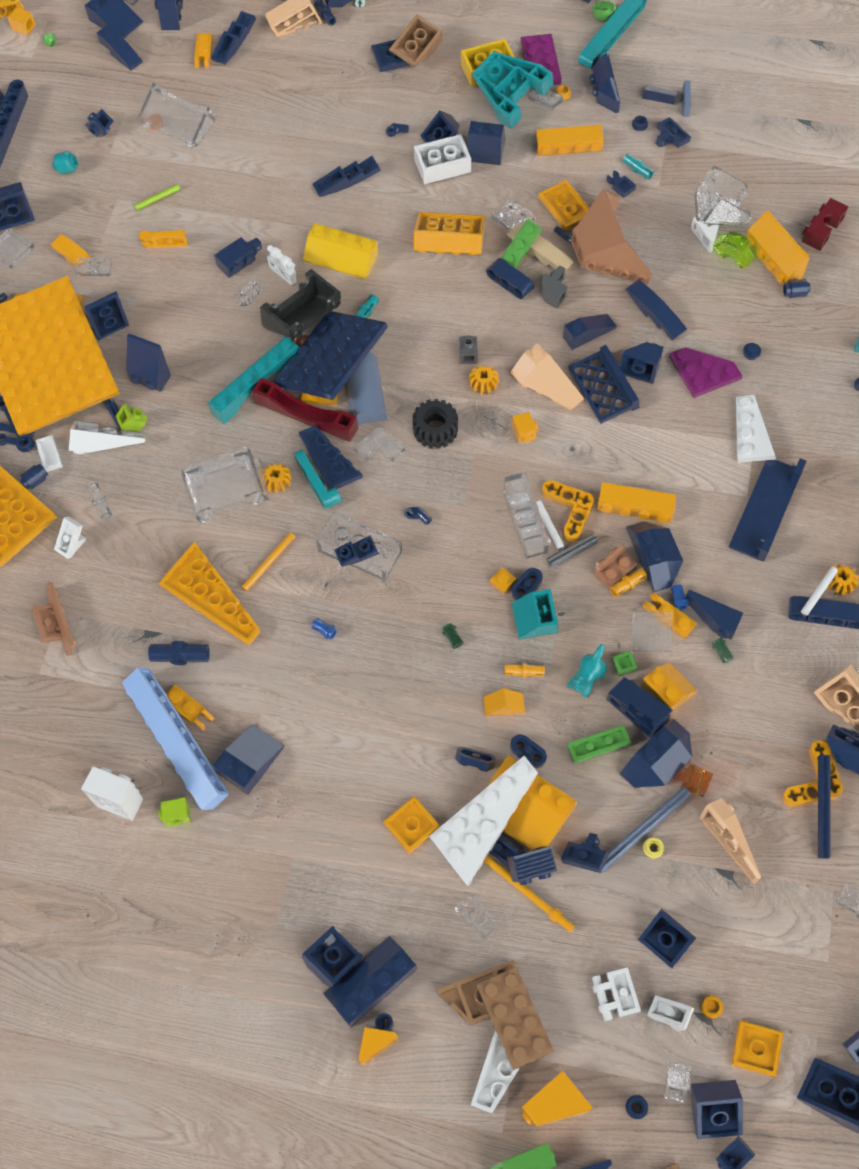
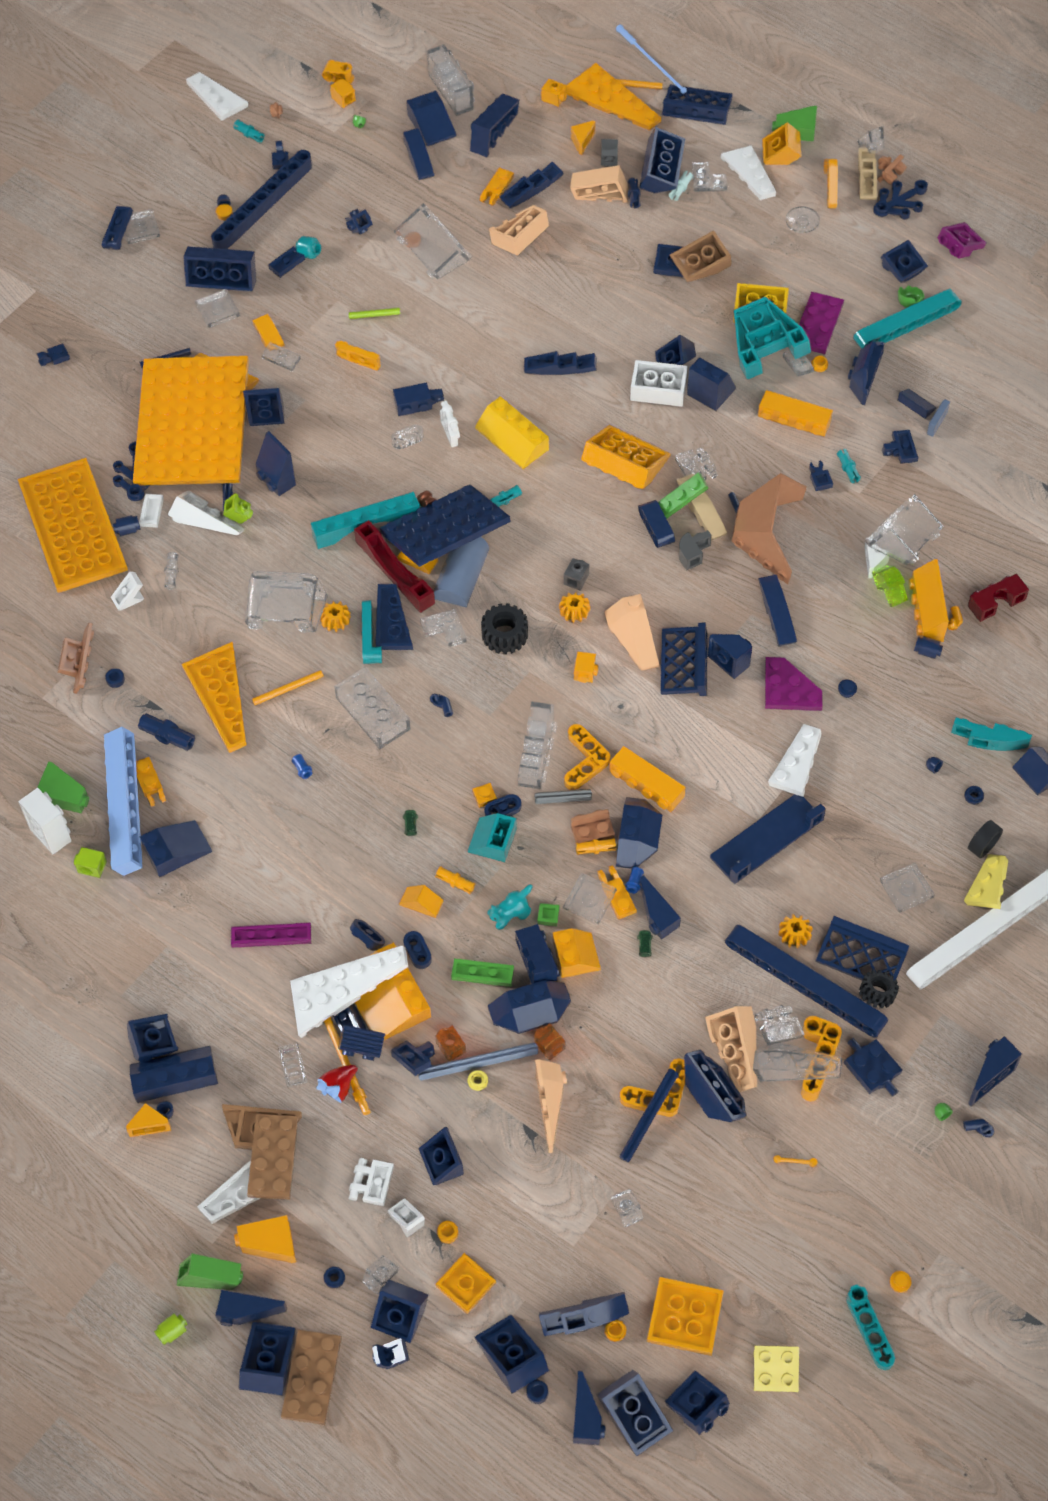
camera: 25 degrees right, 5 degrees down
(51, 183) = (286, 262): none -> dark blue plate
(100, 623) = (115, 678): none -> dark blue tile
(109, 753) = (63, 789): none -> bright green slope
(247, 78) = (520, 231): none -> light nougat wedge
(303, 308) = (442, 472): pearl dark grey windscreen -> none
(356, 552) = (365, 711): dark blue slope -> none
(385, 800) = (271, 935): none -> magenta tile
(395, 128) = (634, 335): dark blue arm -> none
(411, 824) = (281, 964): light orange tile -> none
(531, 914) = (337, 1082): none -> red hat
(549, 525) = (556, 765): white piece -> none
(564, 204) = (751, 471): light orange plate -> none
(587, 329) = (701, 601): dark blue slope -> none
(610, 833) = (450, 1051): none -> clear orange brick
(640, 123) = (877, 424): dark blue plate -> none
(819, 591) = (763, 929): white bar -> none

